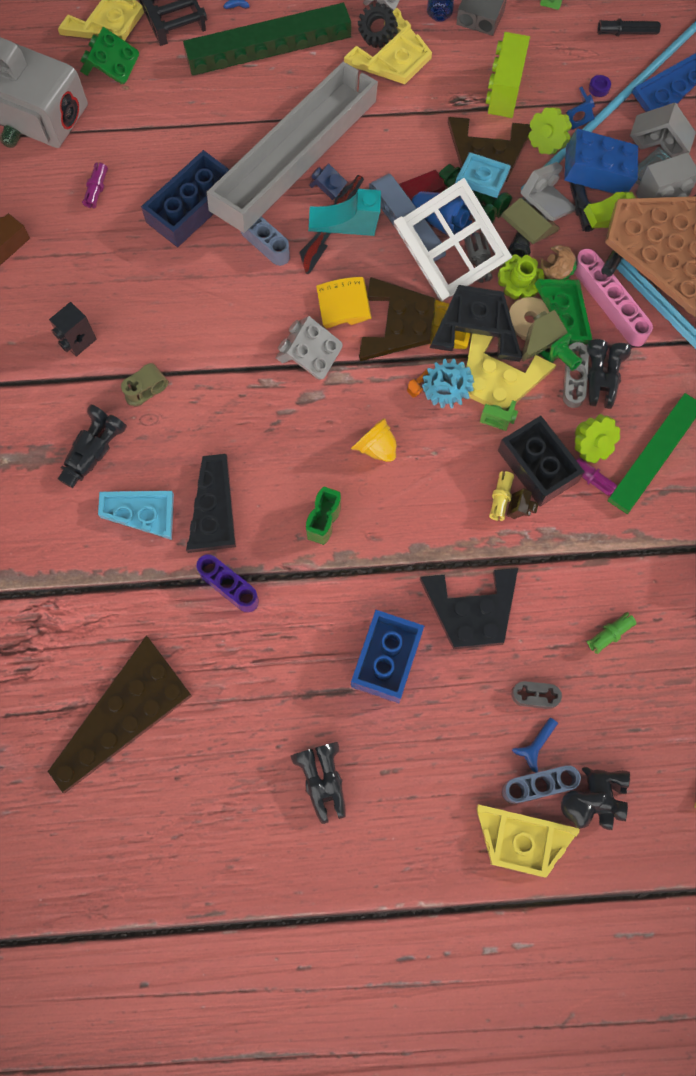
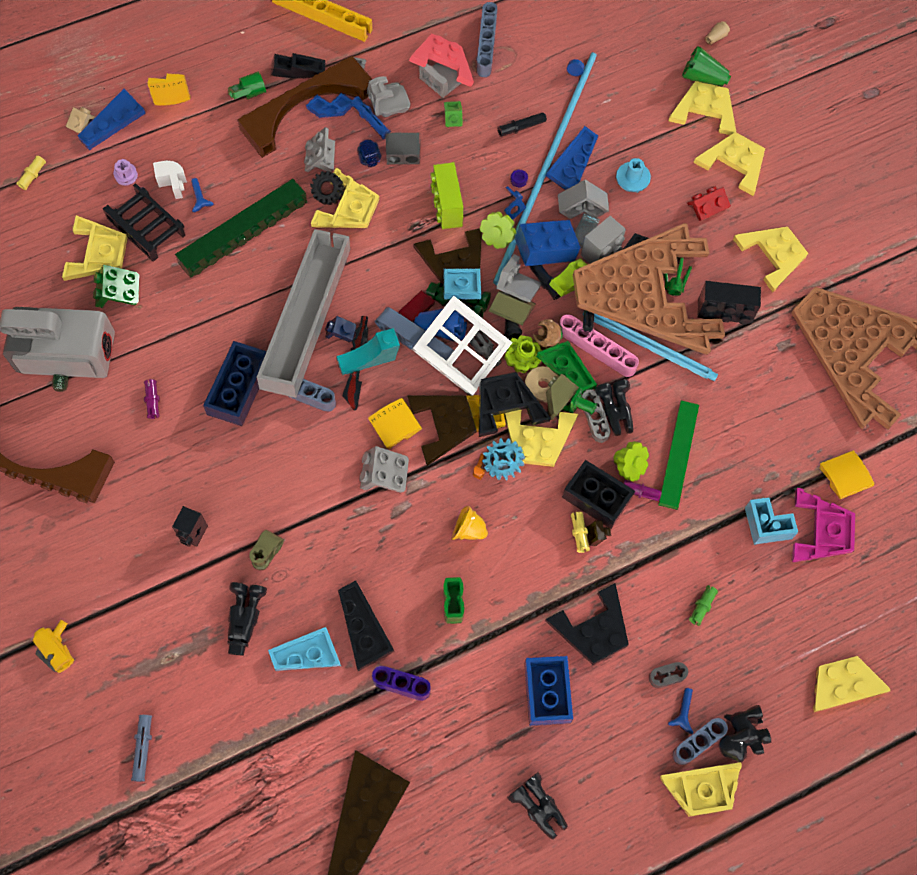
camera: 25 degrees left, 5 degrees down
(497, 417) = (552, 472): bright green bracket -> none

